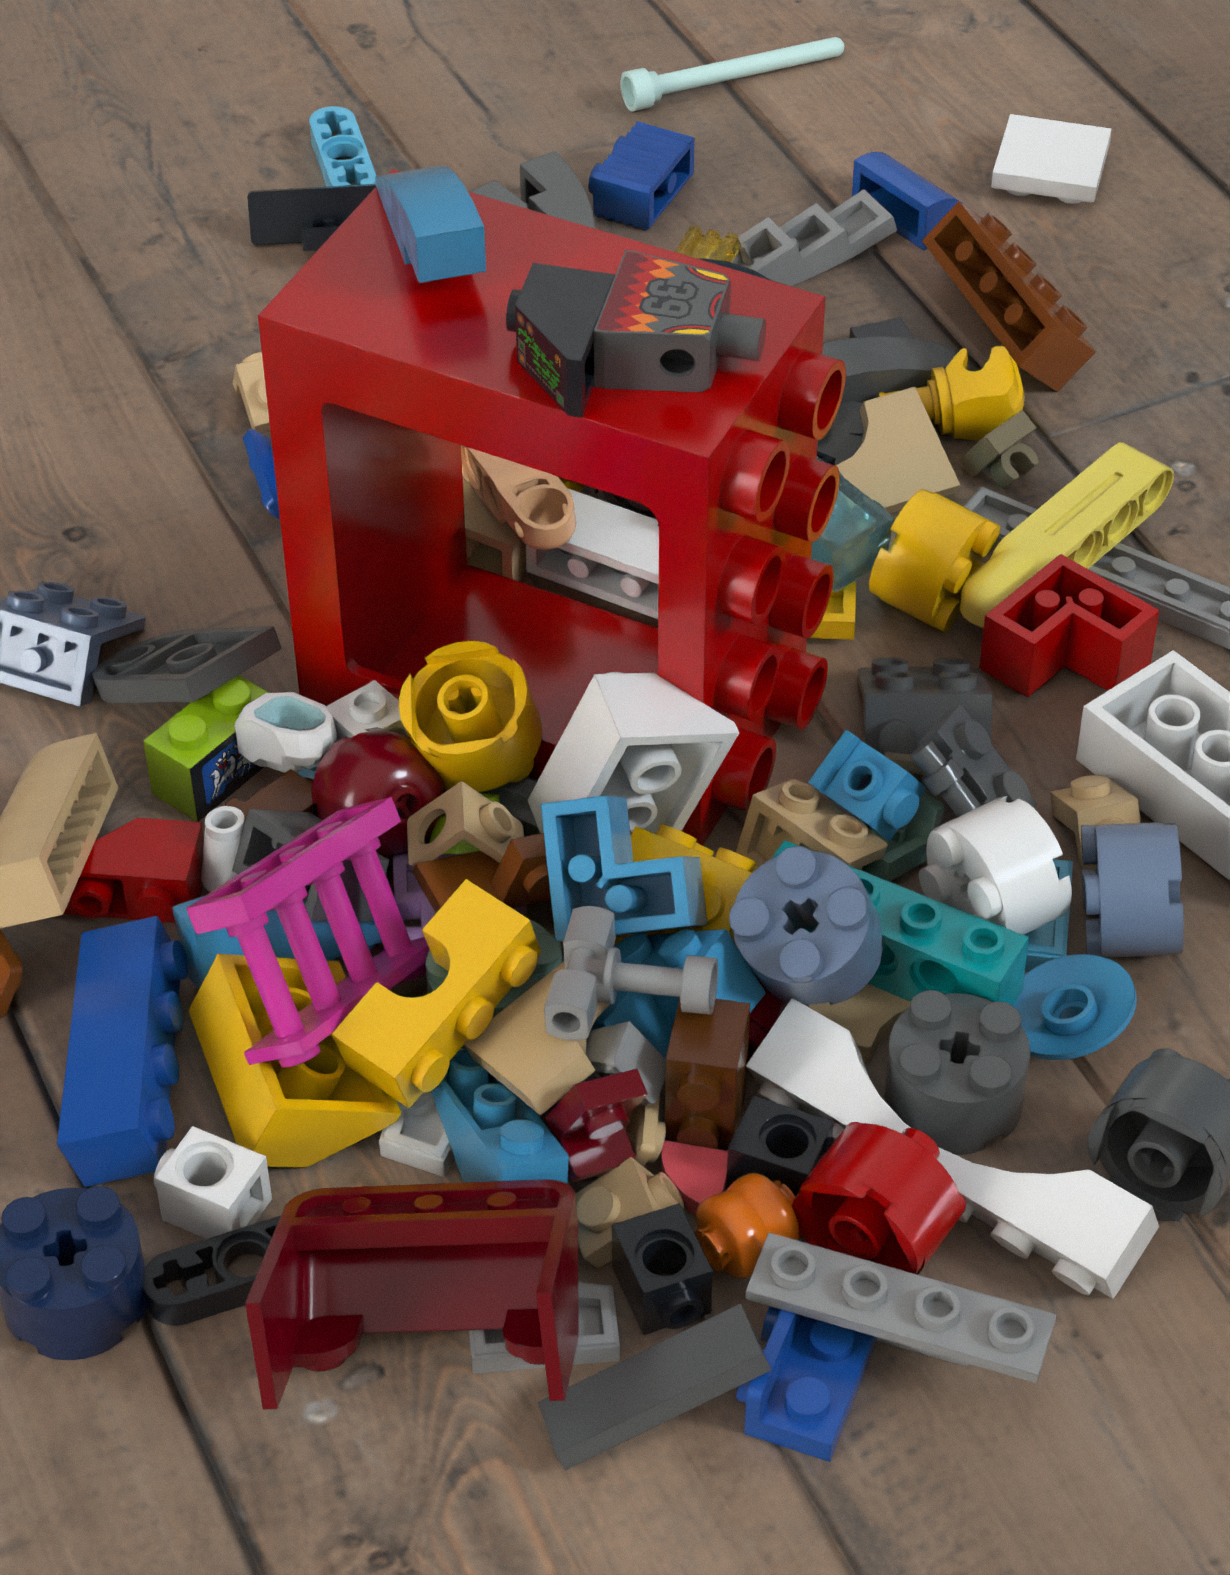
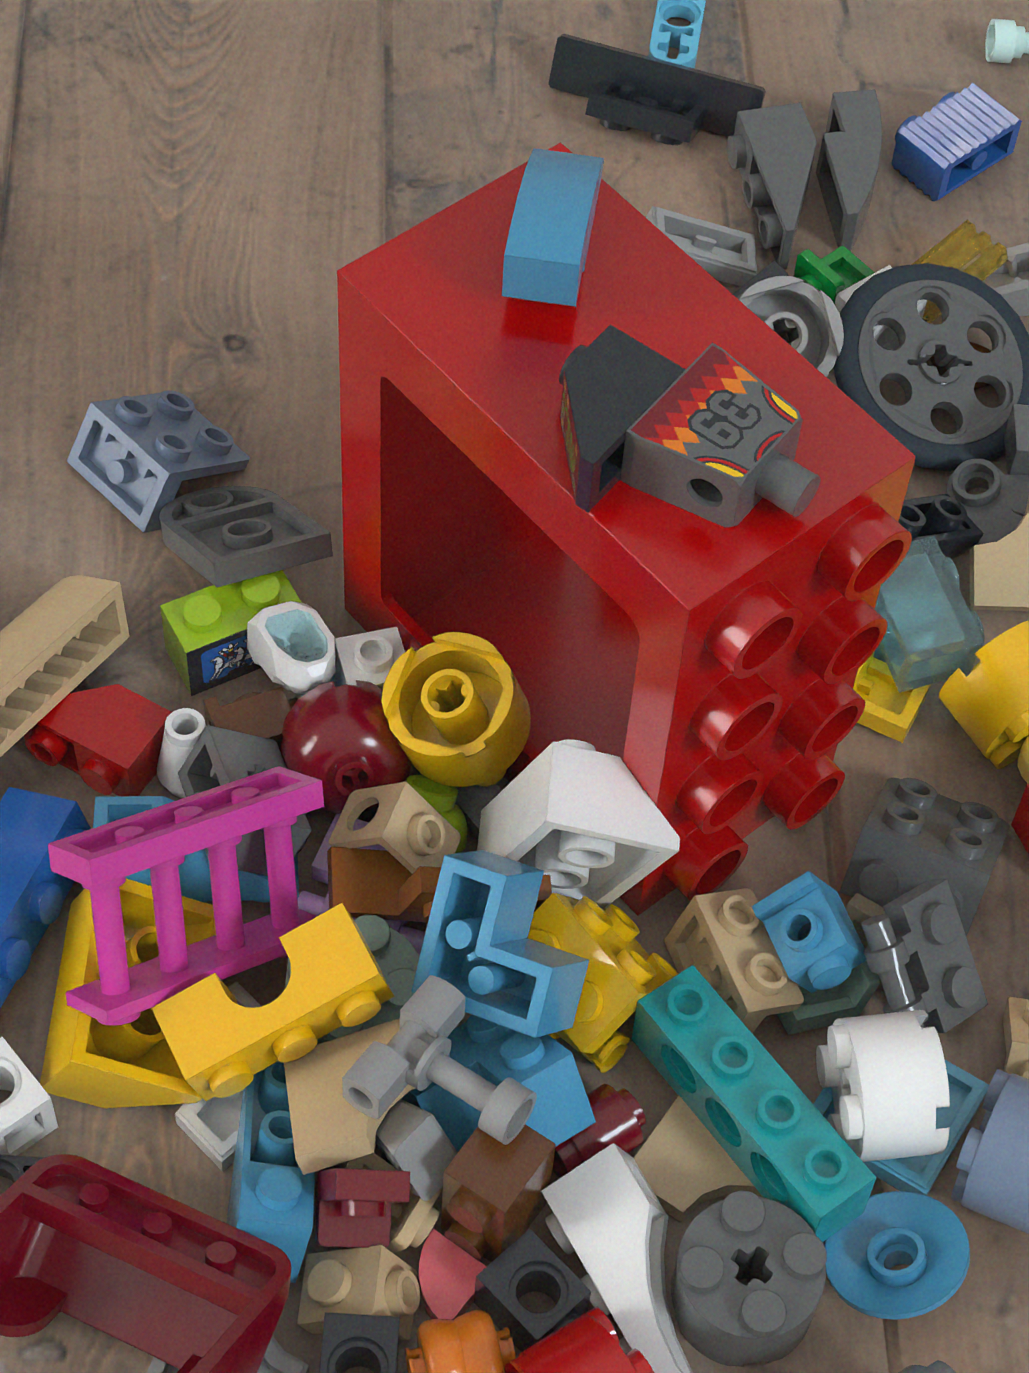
camera: 20 degrees right, 10 degrees up
(799, 892) = (617, 1069): sand blue brick -> none

